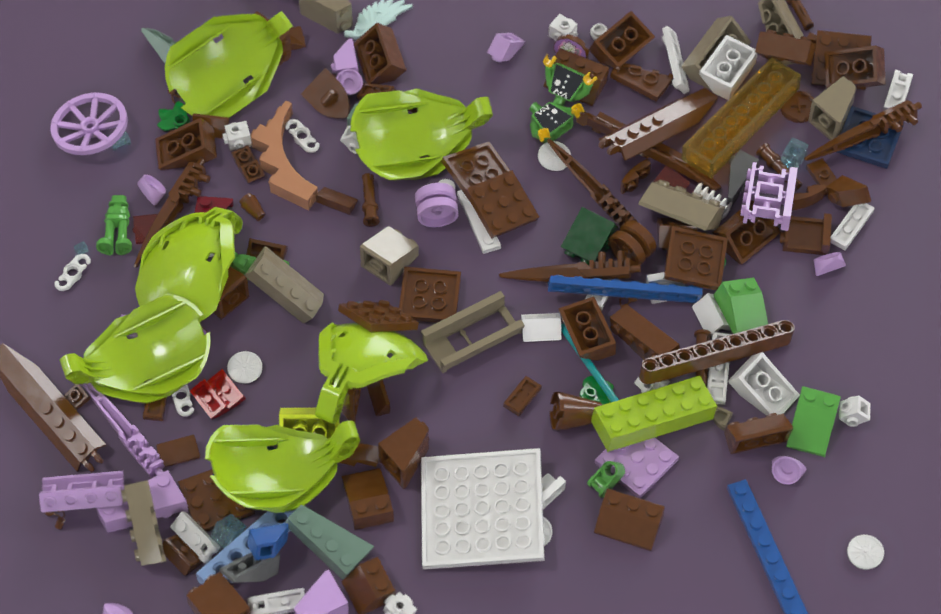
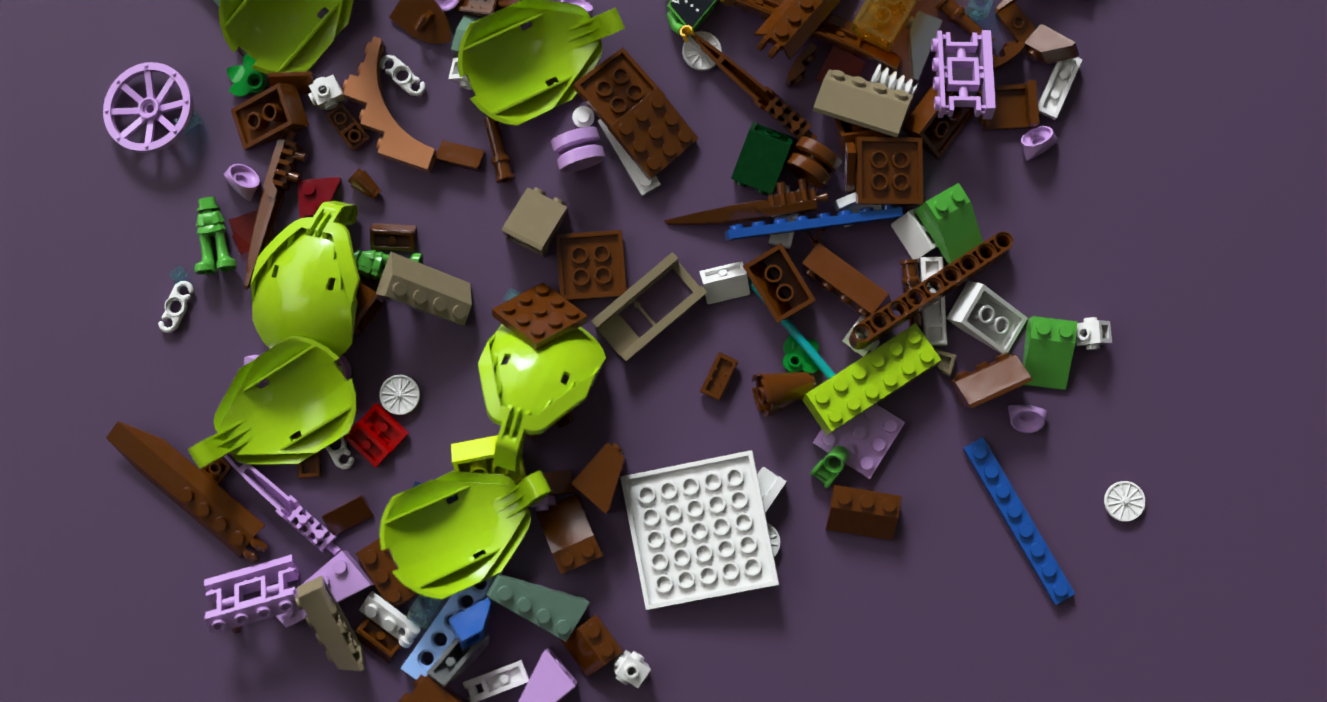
camera: 10 degrees left, 25 degrees up
(349, 466) = (544, 504): none -> lavender plate
(663, 251) = (850, 167): none -> reddish brown tile

